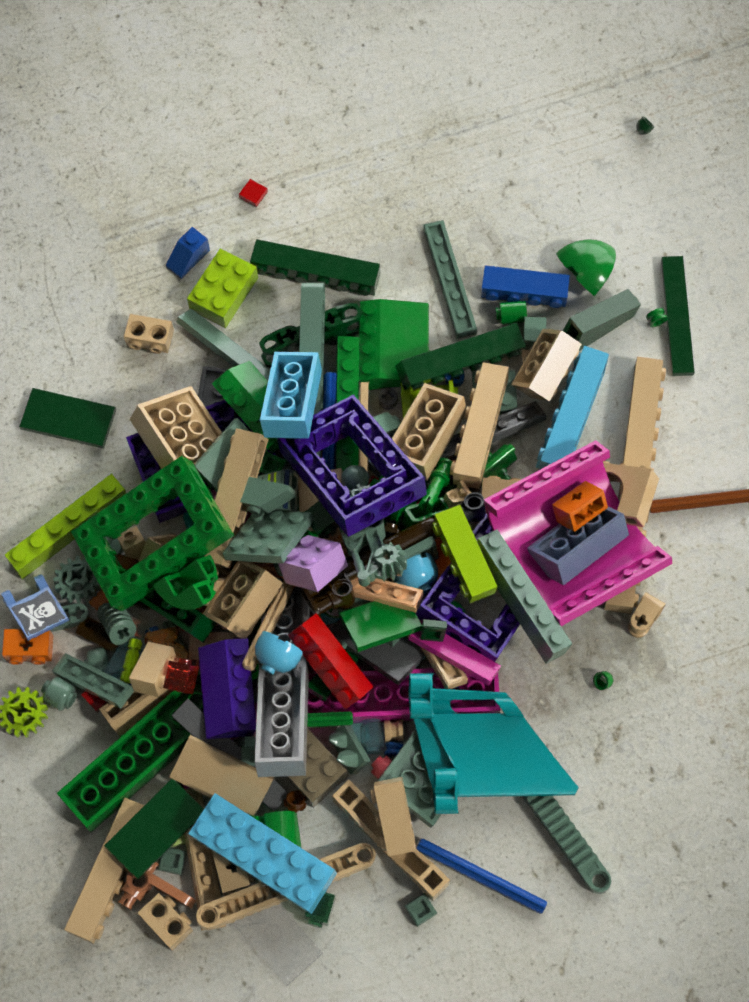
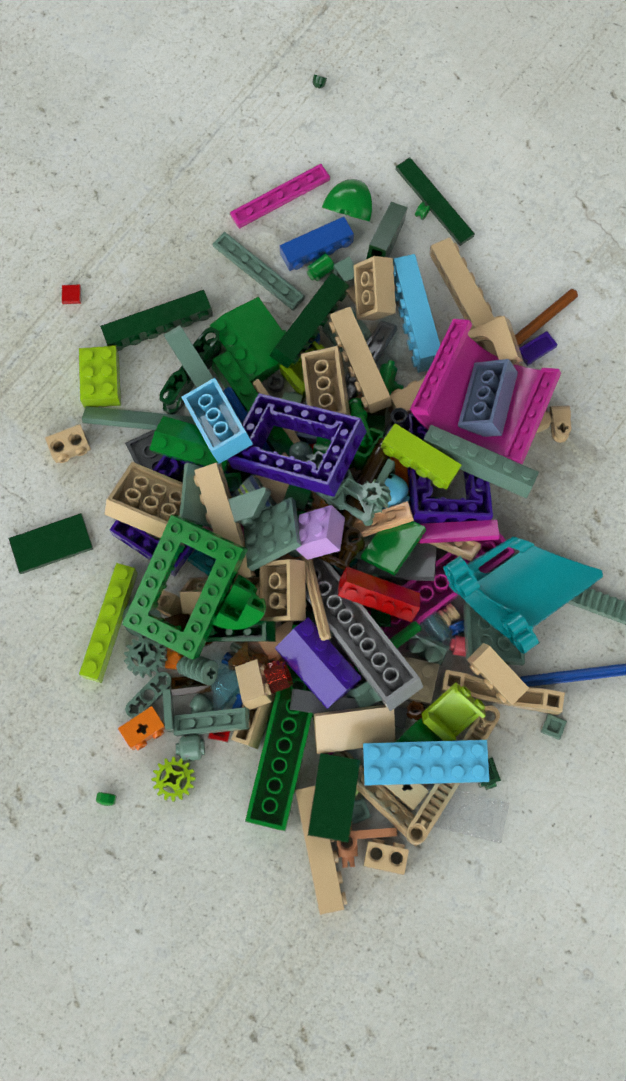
camera: 35 degrees left, 5 degrees up
(36, 612) = (132, 700): flag -> none
(63, 644) = (168, 710): none -> sand green tile
(131, 659) = (230, 689): lime axle -> none
(187, 252) = (54, 367): blue slope -> none
(276, 654) = (341, 614): medium azure cylinder -> none
(326, 826) = (453, 712): none -> lime panel
(433, 630) = (435, 525): dark green tile -> none
(456, 495) = (381, 419): tan brick -> none
(524, 217) = (280, 196): none -> dark pink tile
(580, 506) = (473, 372): orange brick -> none
(603, 683) = (564, 488): green hinge -> none
(677, 526) = (537, 348): none -> dark purple tile

